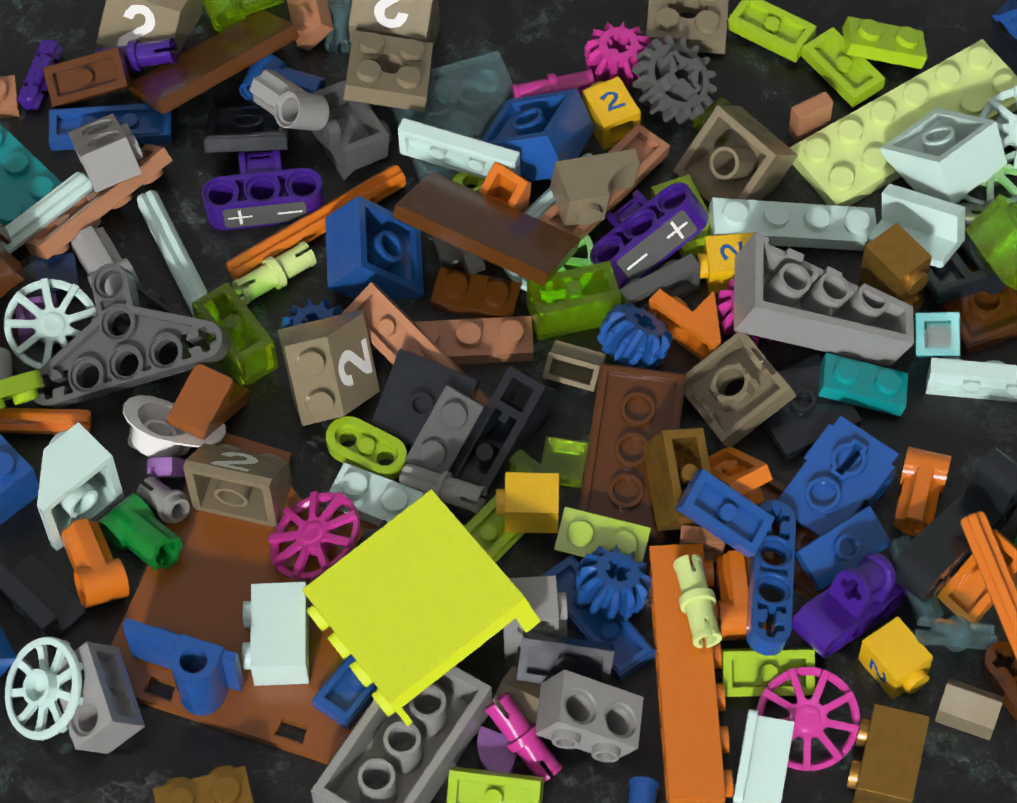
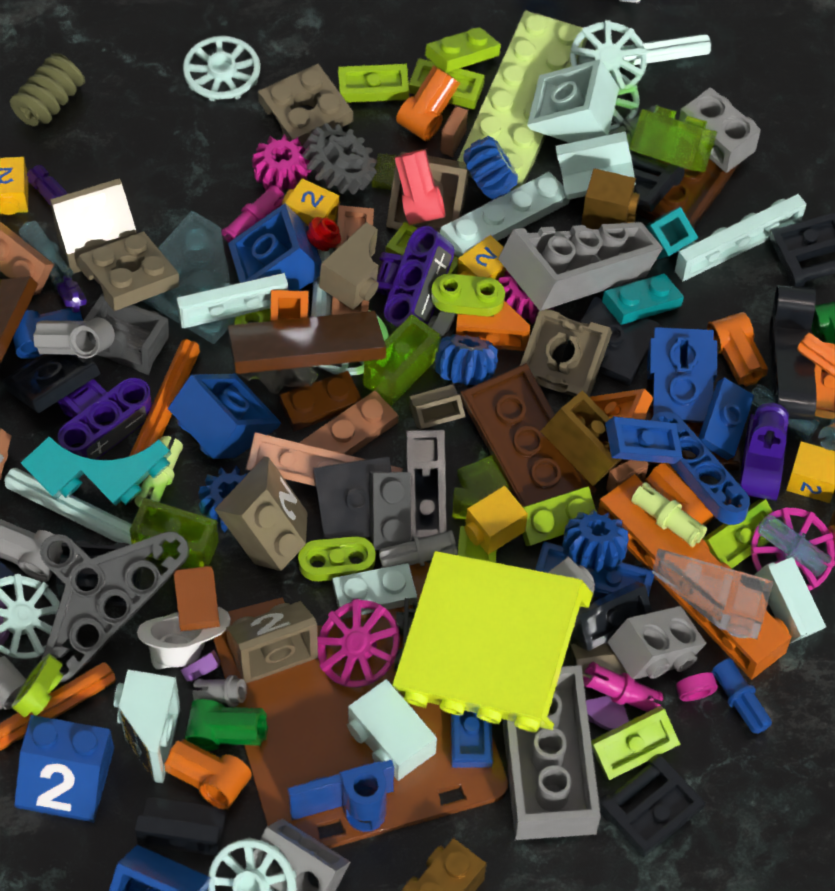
camera: 40 degrees left, 0 degrees up
(179, 212) = (117, 479): none -> teal arch
(325, 63) = (71, 294): none -> dark purple axle
(594, 138) = (323, 233): none -> red plate
(600, 785) = (696, 686): none -> dark pink tile
(679, 273) = (468, 296): none -> lime plate
(685, 715) = (720, 594): none -> clear slope
(714, 157) = (421, 197): none -> coral piece
(794, 80) = (423, 111): none -> orange piece
(803, 710) = (794, 545): none -> clear light blue axle
(806, 167) = (490, 167): none -> blue gear

